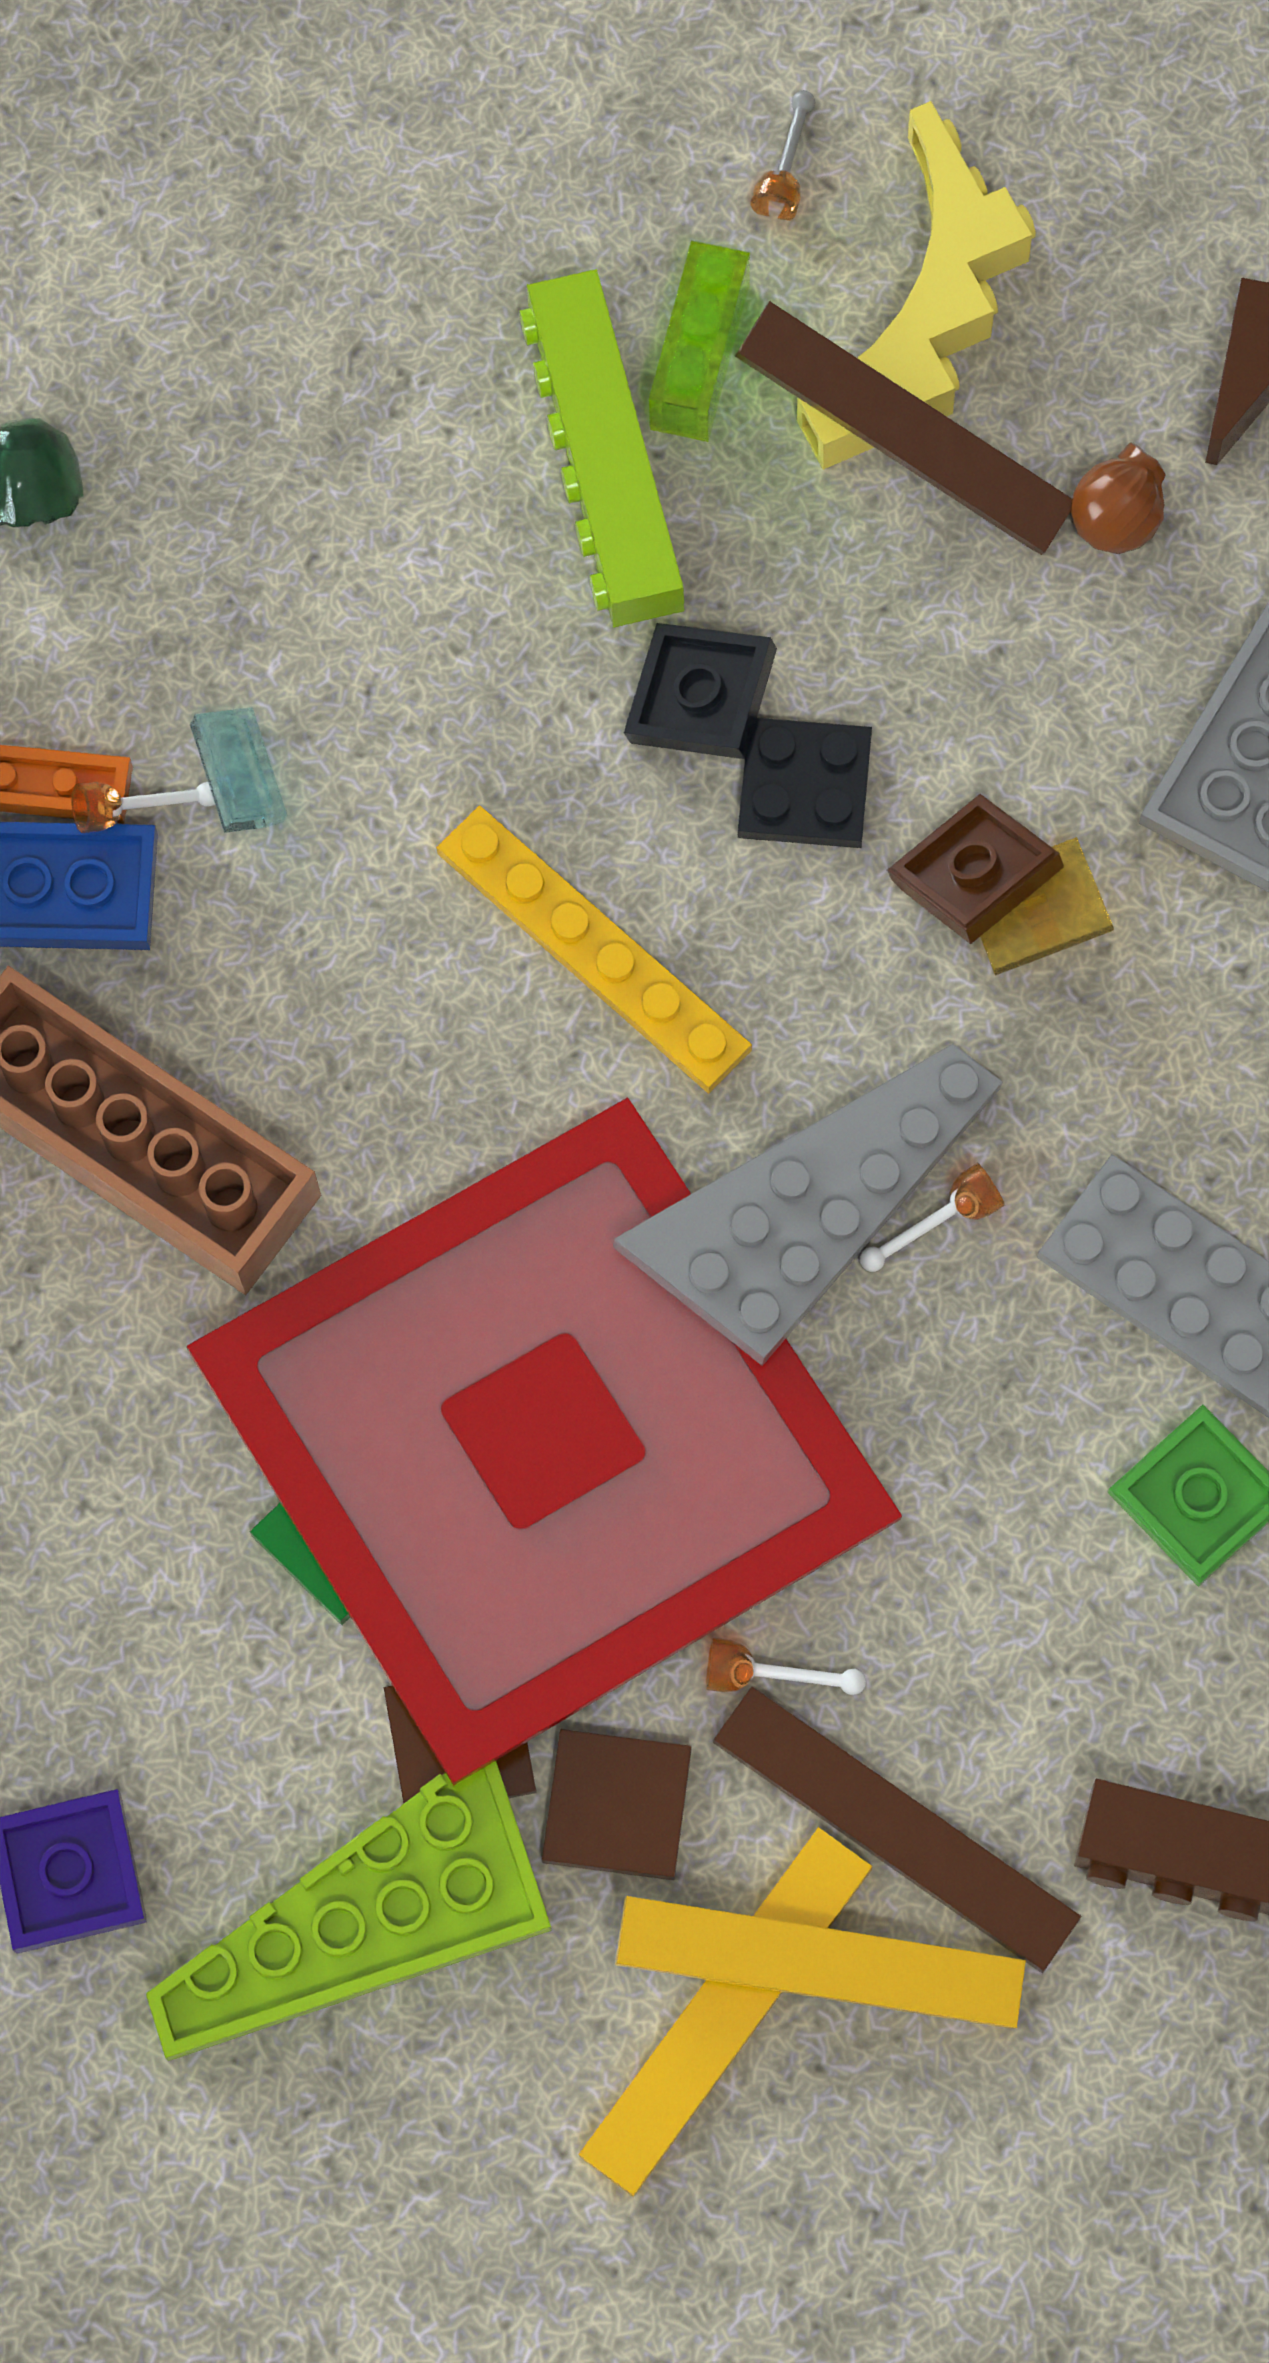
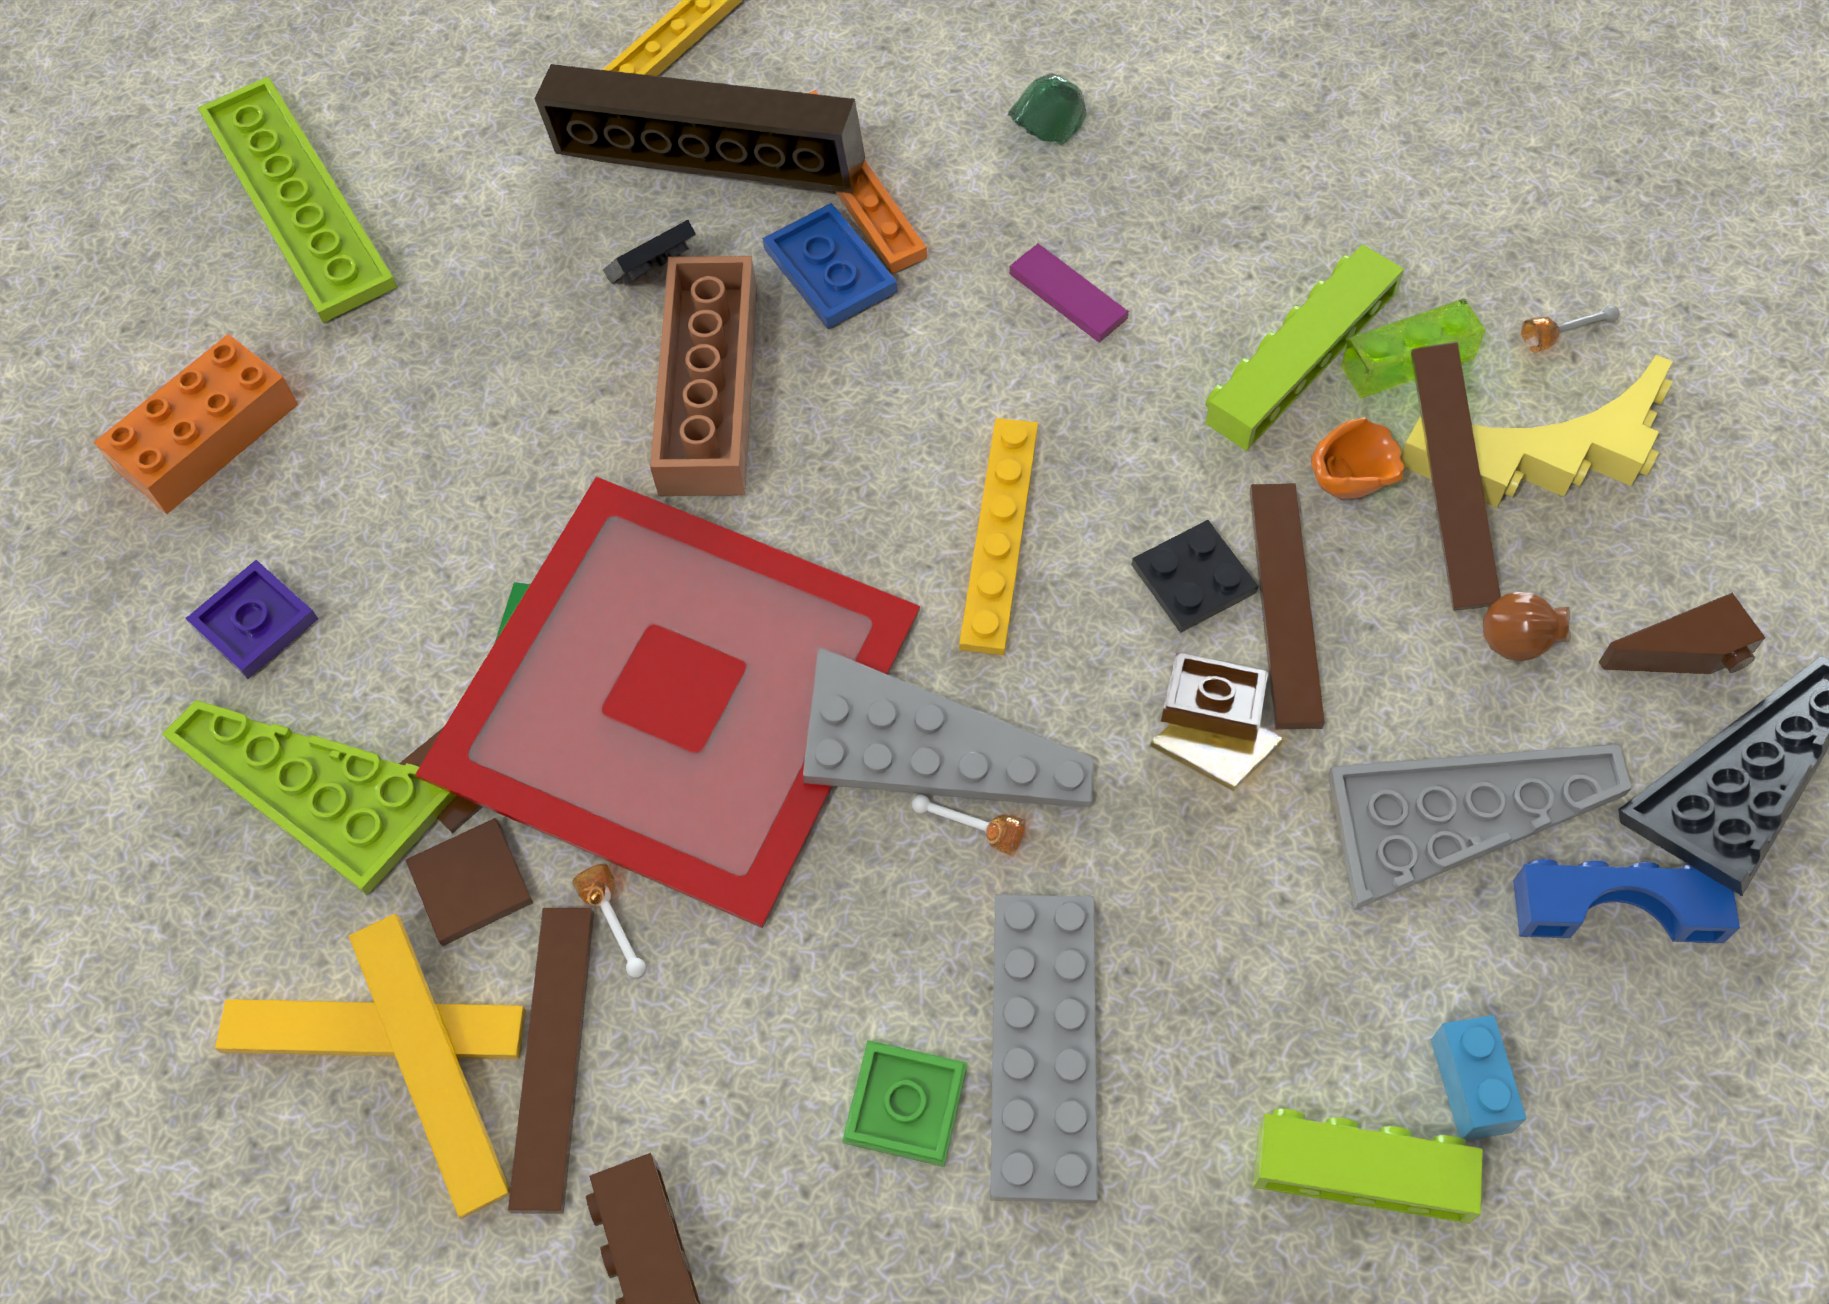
camera: 55 degrees right, 10 degrees down
(99, 805) = (884, 246): clear orange hinge -> none
(238, 769) = (963, 301): clear light blue tile -> none
(315, 644) = (1068, 292): none -> magenta tile
(700, 690) = (1200, 483): black plate -> none
(804, 510) = (1357, 460): none -> orange hair
(915, 717) = (1286, 607): none -> reddish brown tile

